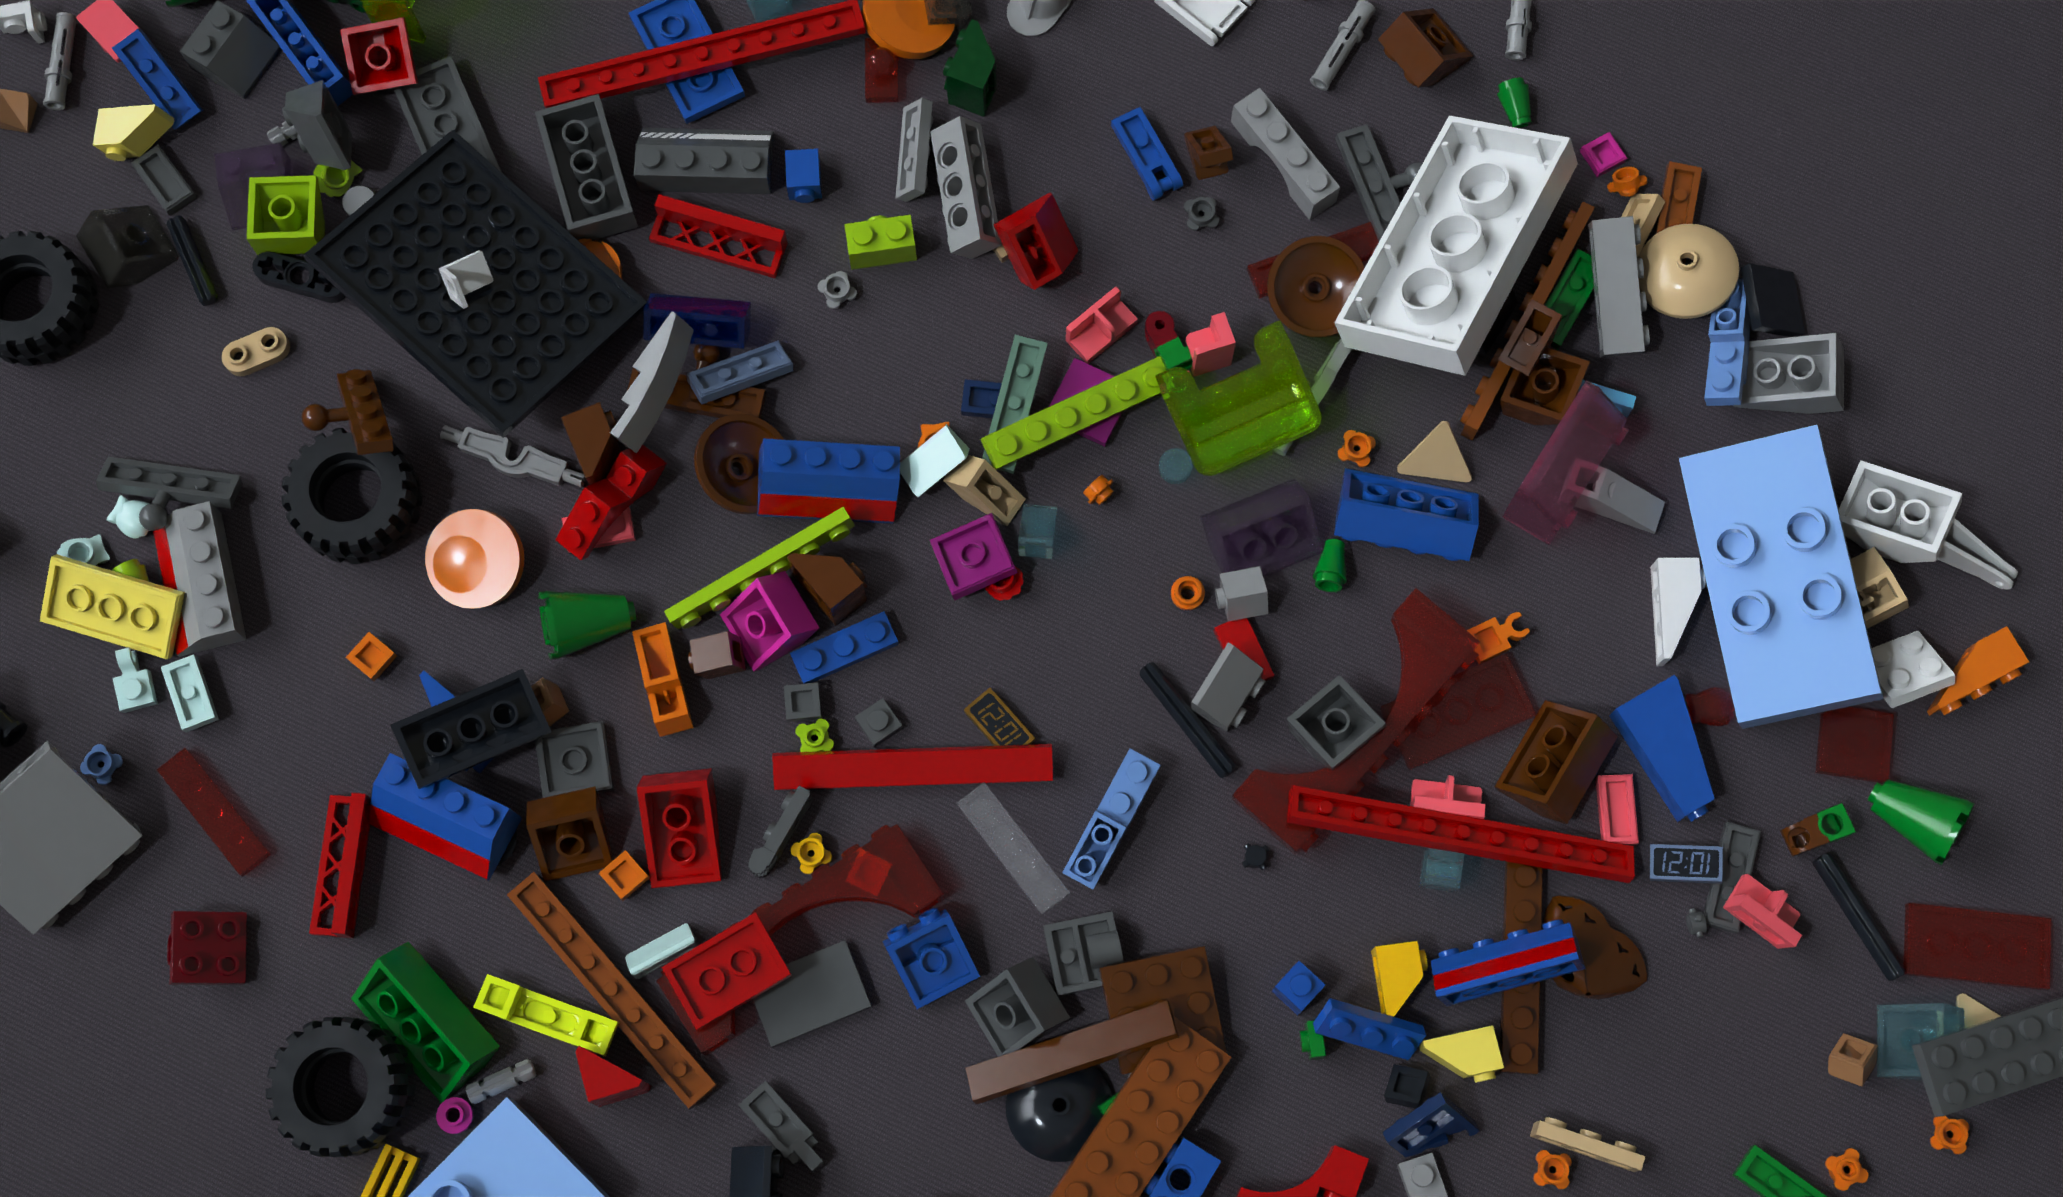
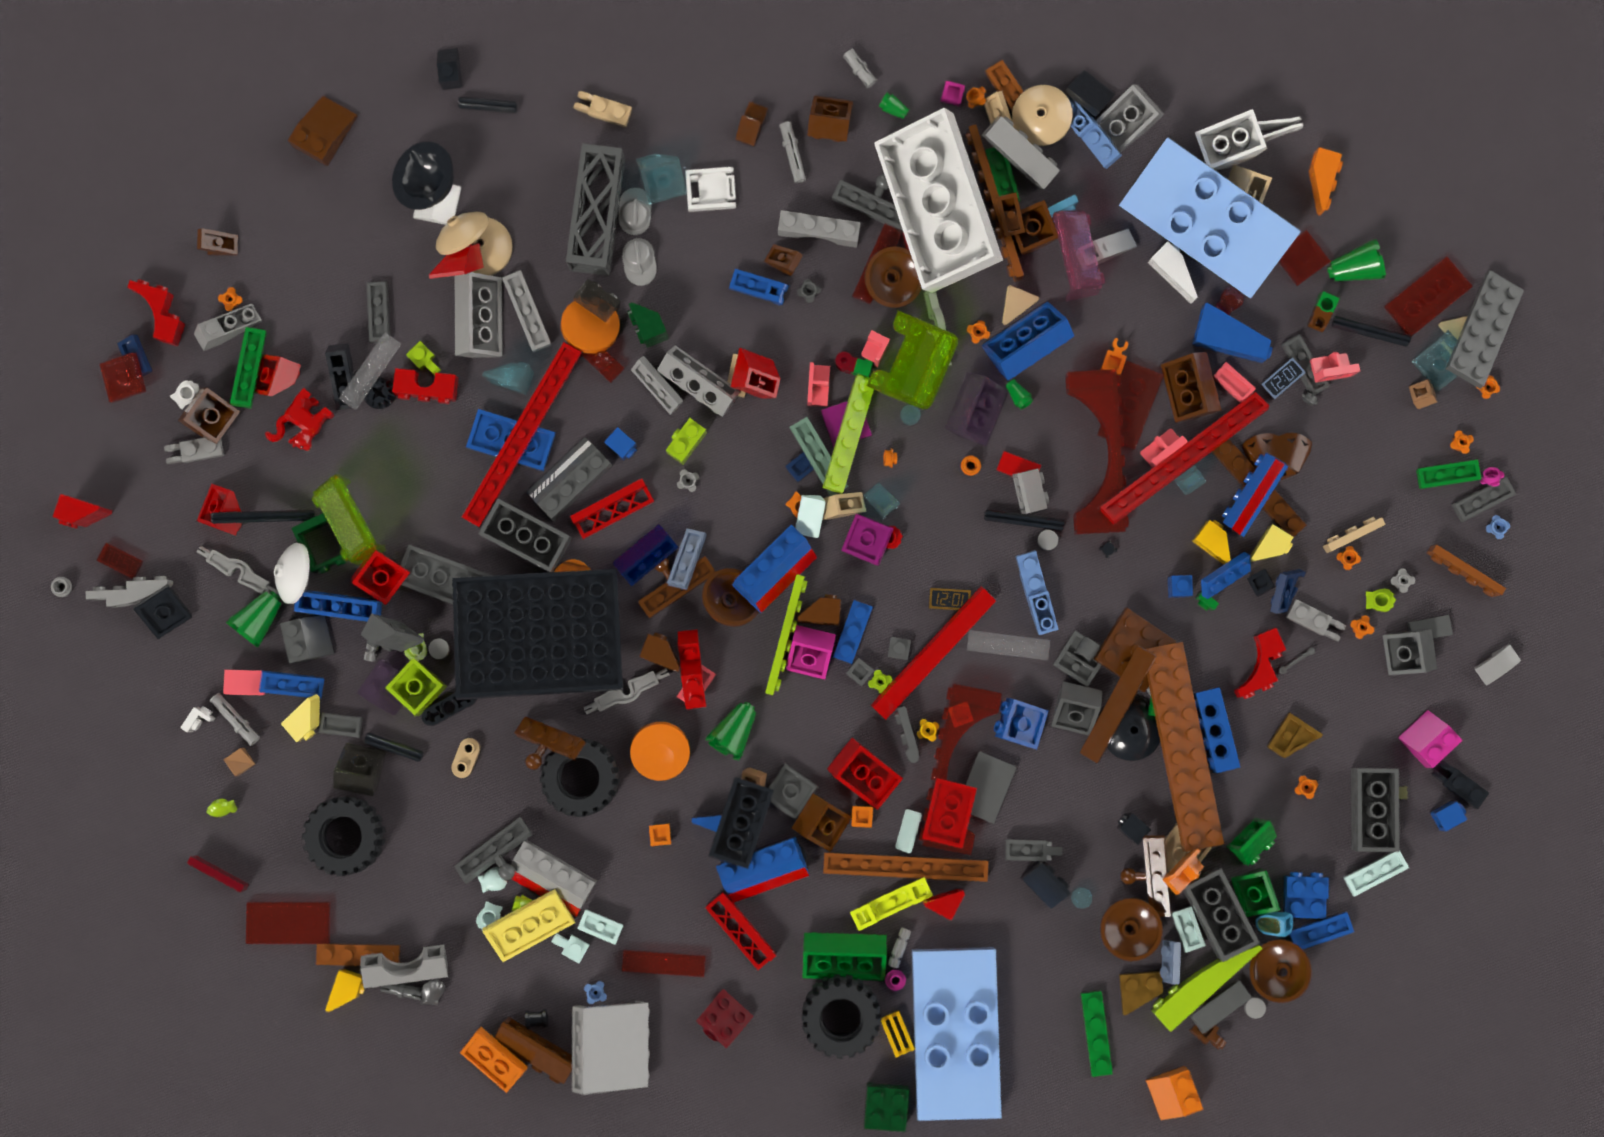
camera: 45 degrees left, 10 degrees up
(466, 276) = (534, 637): white bracket -> none
(659, 371) = (658, 594): light grey slope -> none
(662, 679) = (791, 721): orange slope -> none
(716, 655) = (805, 689): brick -> none
(1191, 772) = (1047, 540): none -> light grey tile
(1242, 594) = (995, 444): light grey brick -> none
(1334, 723) = (1090, 462): dark grey slope -> none
(1910, 669) = (1296, 204): white plate -> none

